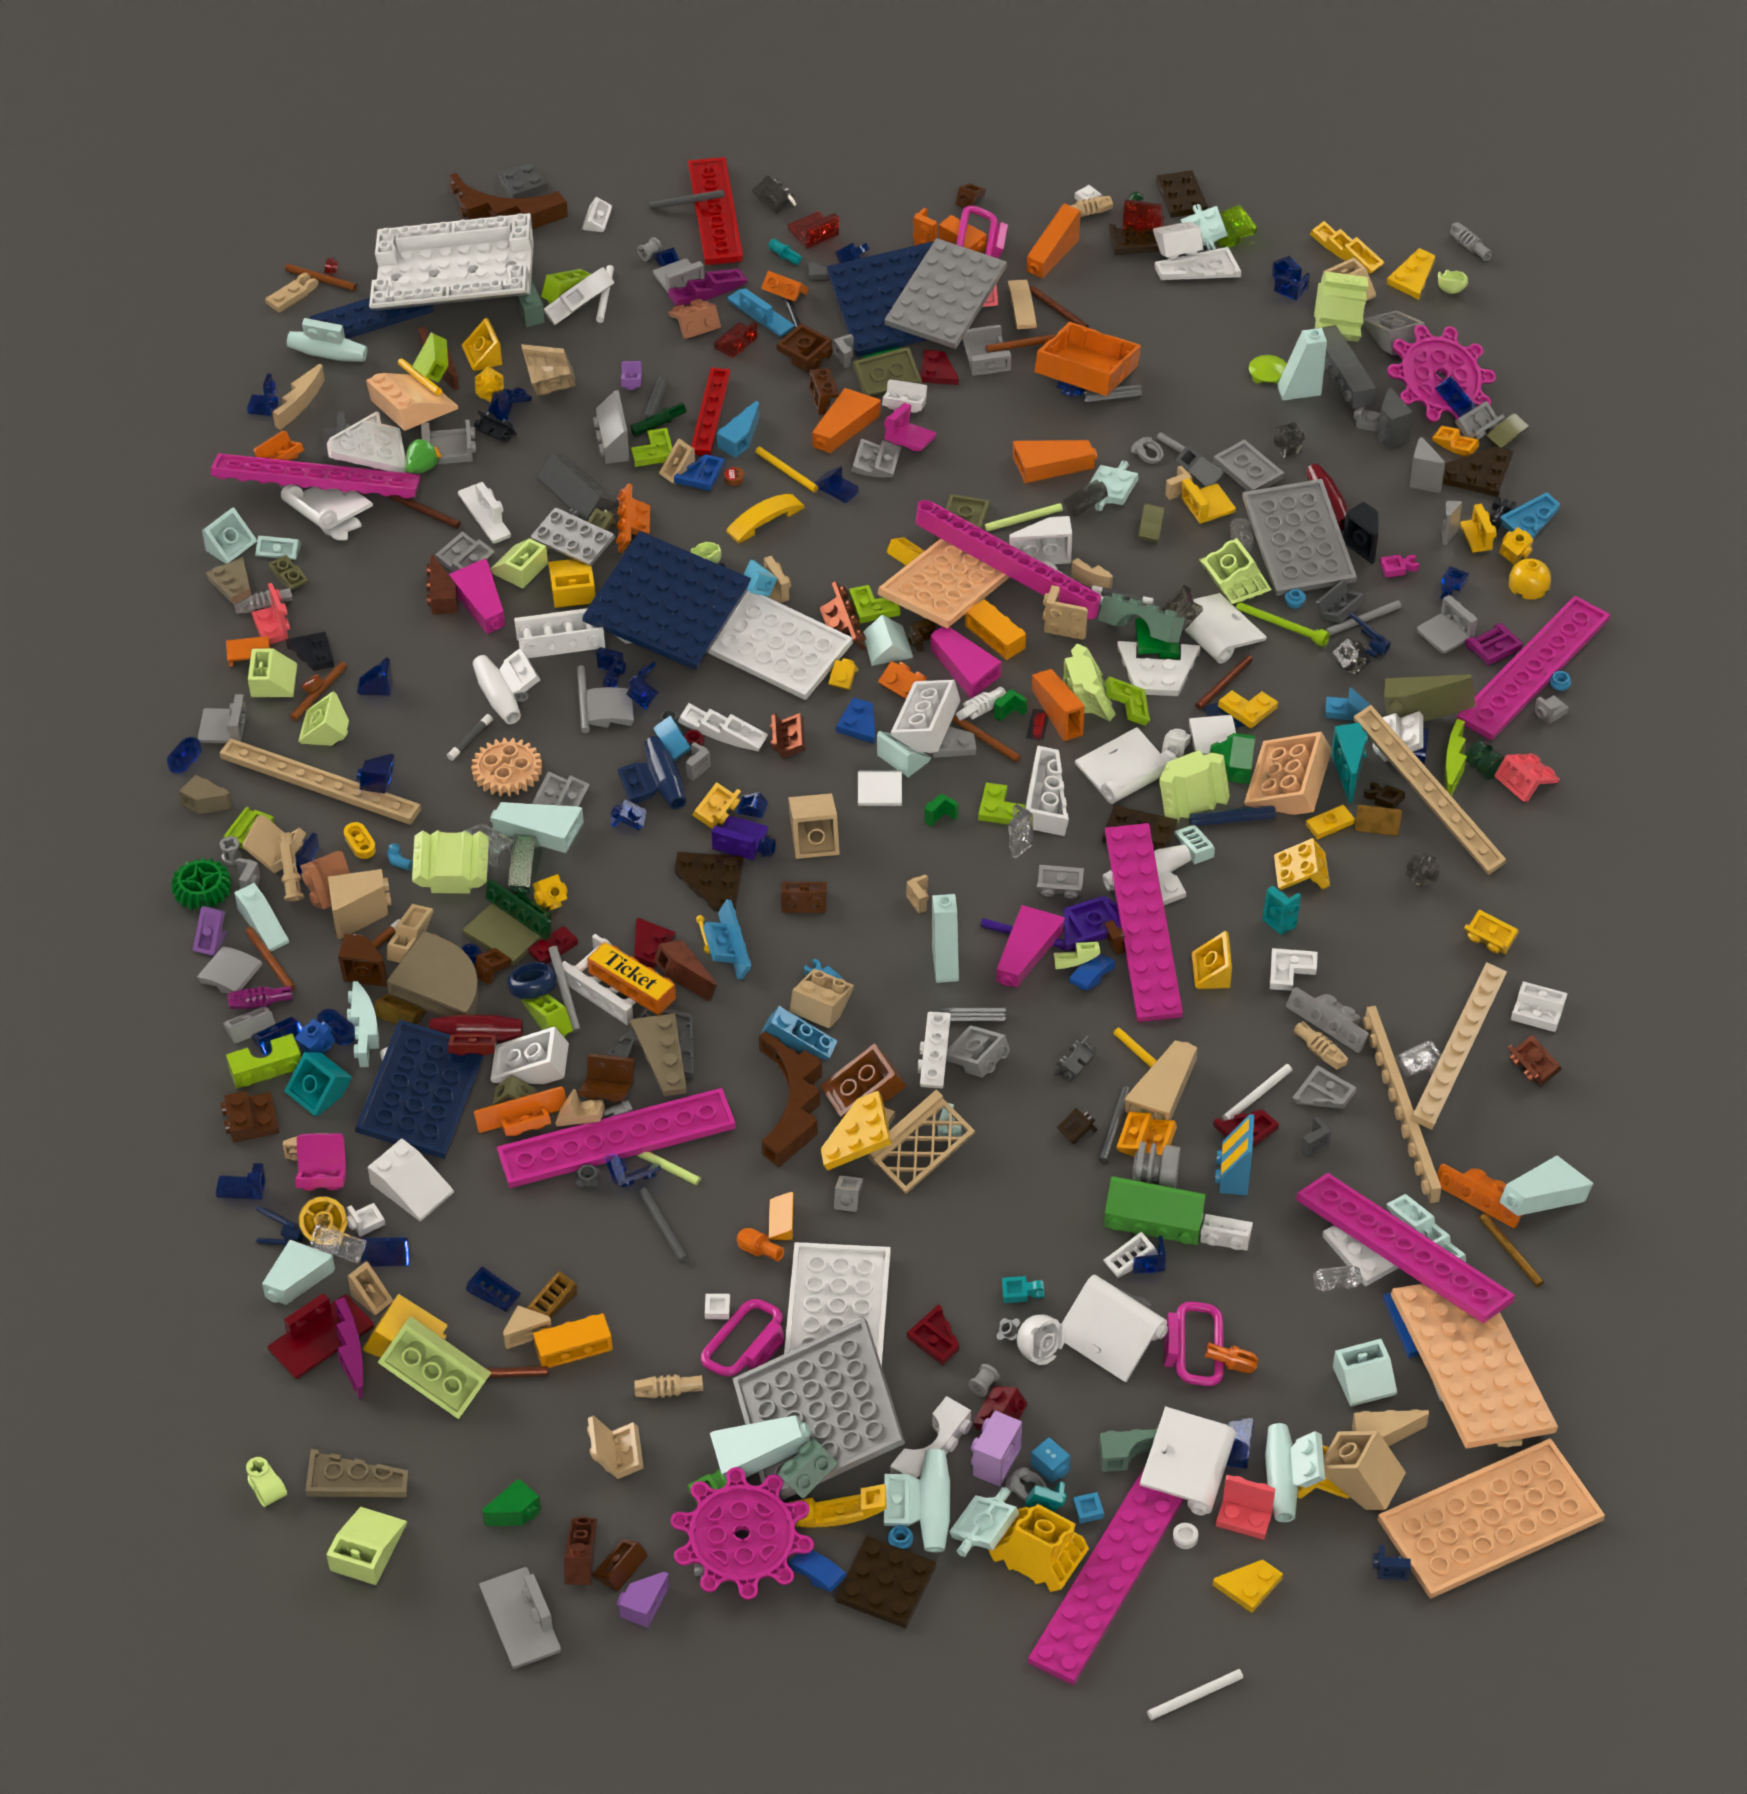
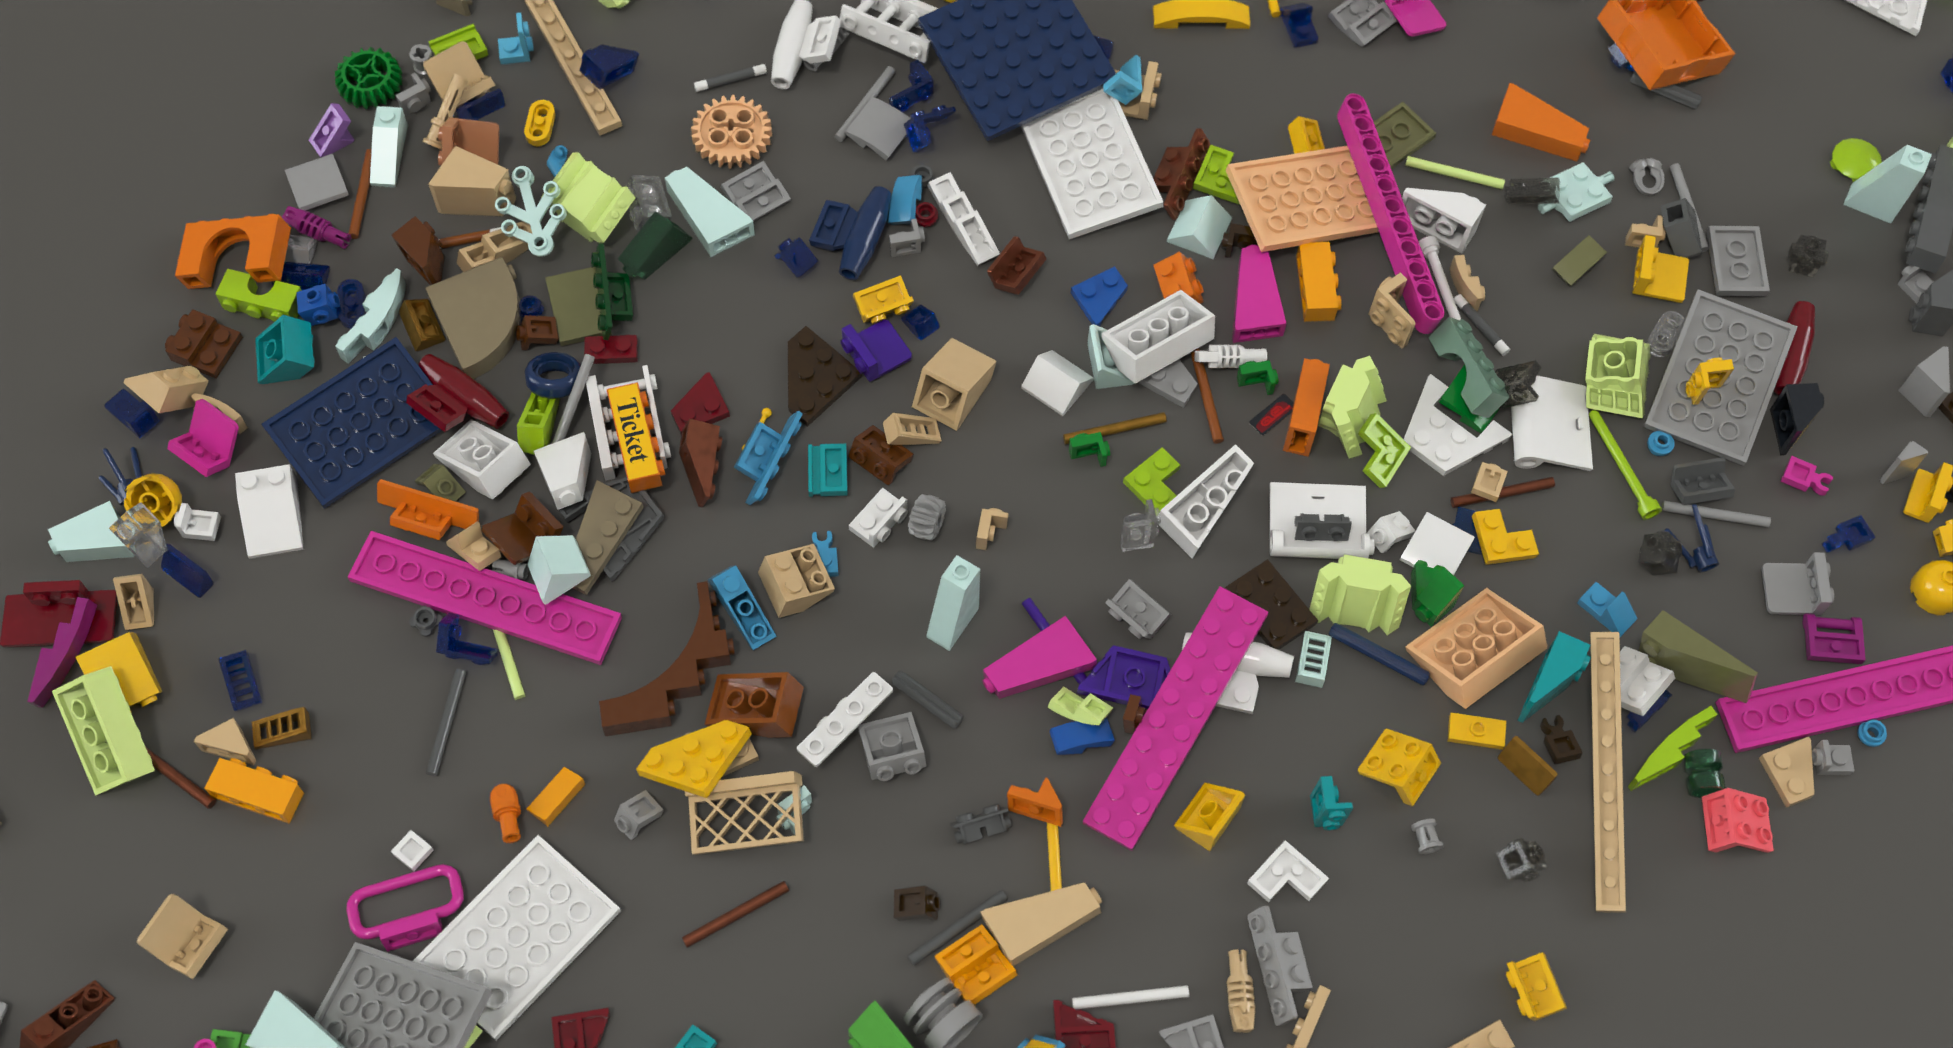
camera: 35 degrees right, 15 degrees up
(230, 1016) = (208, 239): none -> orange arch
(261, 1147) = (168, 388): none -> tan slope
(296, 803) = (516, 48): none -> medium azure bracket
(420, 893) = (533, 214): none -> light aqua plant
(512, 1506) = (53, 929): green slope -> none
(550, 892) = (654, 284): yellow brick -> none
(598, 1029) = (565, 469): none -> white slope
(653, 1084) = (556, 565): none -> light aqua slope
(664, 1386) = (295, 904): tan hinge -> none
(708, 551) = (1106, 22): yellowish green hair -> none
(767, 846) = (893, 376): clear blue plate -> none
(777, 925) = (827, 470): none -> teal plate
(811, 868) = (897, 435): none -> tan slope
(838, 932) = (878, 517): none -> white bracket
(843, 674) = (1126, 234): yellow bracket -> none
(874, 909) = (926, 517): none -> light grey gear
(945, 789) = (1121, 426): none -> pearl gold bar
(966, 1207) = (735, 914): none -> copper bar
(1105, 1022) = (1040, 806): none -> orange slope
(1135, 765) = (1331, 529): none -> dark grey hinge
(1212, 678) = (1489, 481): none -> tan bracket
(1295, 536) = (1707, 376): none -> yellow bracket
(1354, 894) = (1423, 827): none -> light grey bush
(1532, 730) = (1791, 771): none -> tan wing

